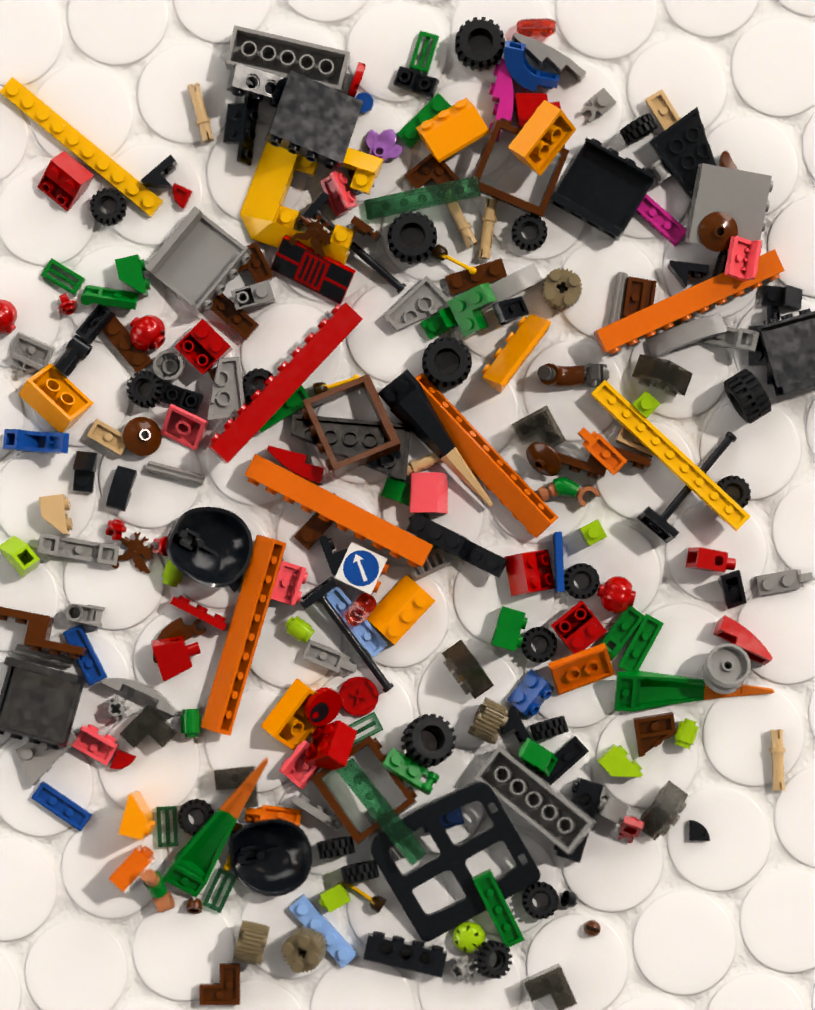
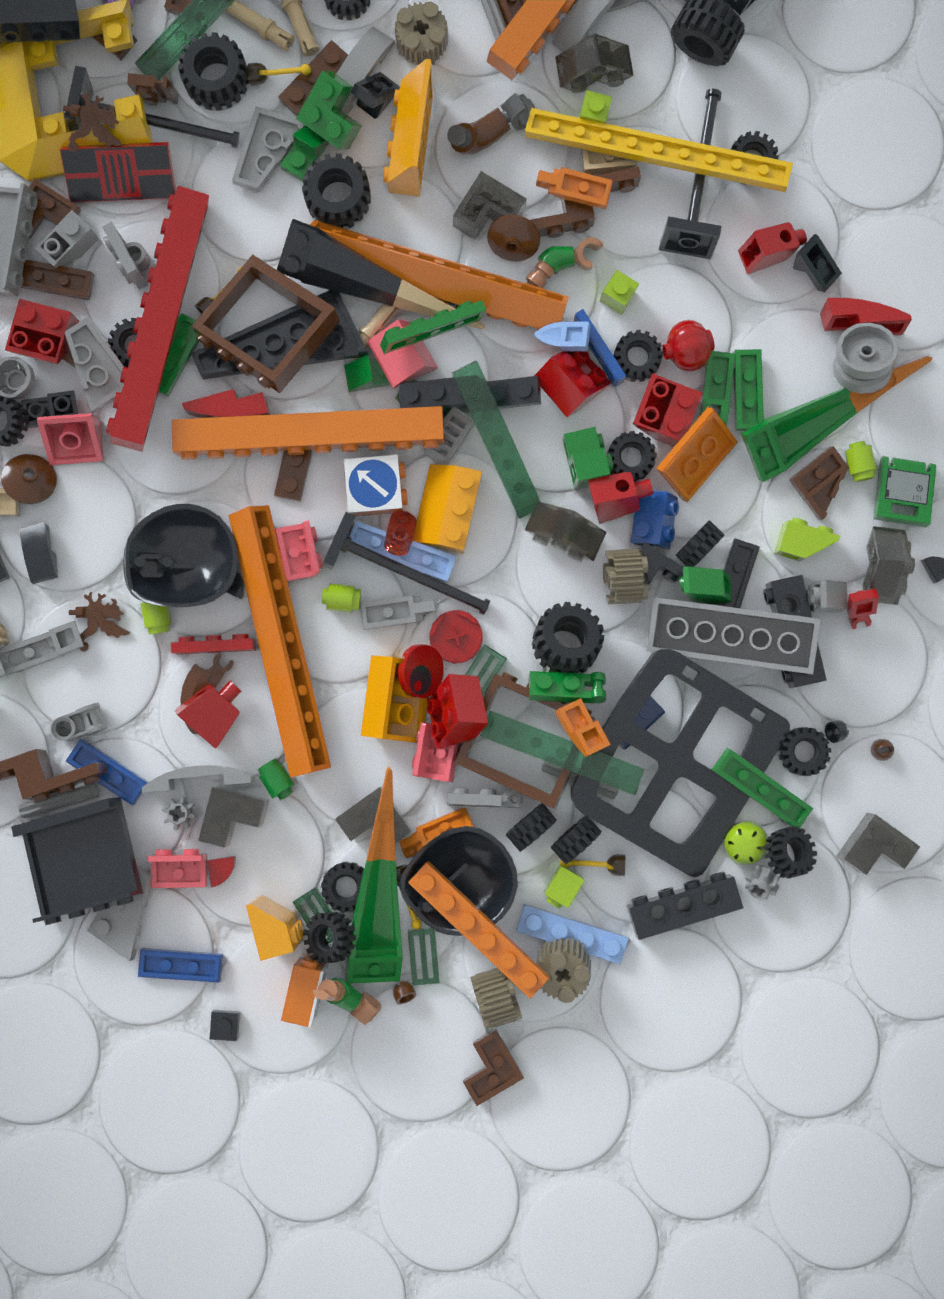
camera: 30 degrees left, 0 degrees up
(68, 860) = (224, 1025): none -> black plate
(115, 529) = (59, 604): red plate -> none
(162, 546) = (126, 596): red plate -> none
(175, 473) = (93, 499): light grey axle -> none
(176, 847) = (341, 937): none -> black tyre
(265, 893) = (479, 929): none -> orange plate
(283, 336) = (123, 252): none -> light grey plate
(334, 560) = (335, 493): black slope -> none
(341, 196) = (103, 70): coral bracket -> none
(402, 803) = (581, 729): none -> orange slope
(456, 586) = (496, 438): none -> clear green tile
(465, 490) = (439, 324): none -> green plate
(513, 666) = (617, 495): none -> red torso
(540, 543) = (566, 335): none -> light blue plate
(707, 766) = (905, 485): none -> green container
(781, 581) = (867, 226): light grey hinge -> none

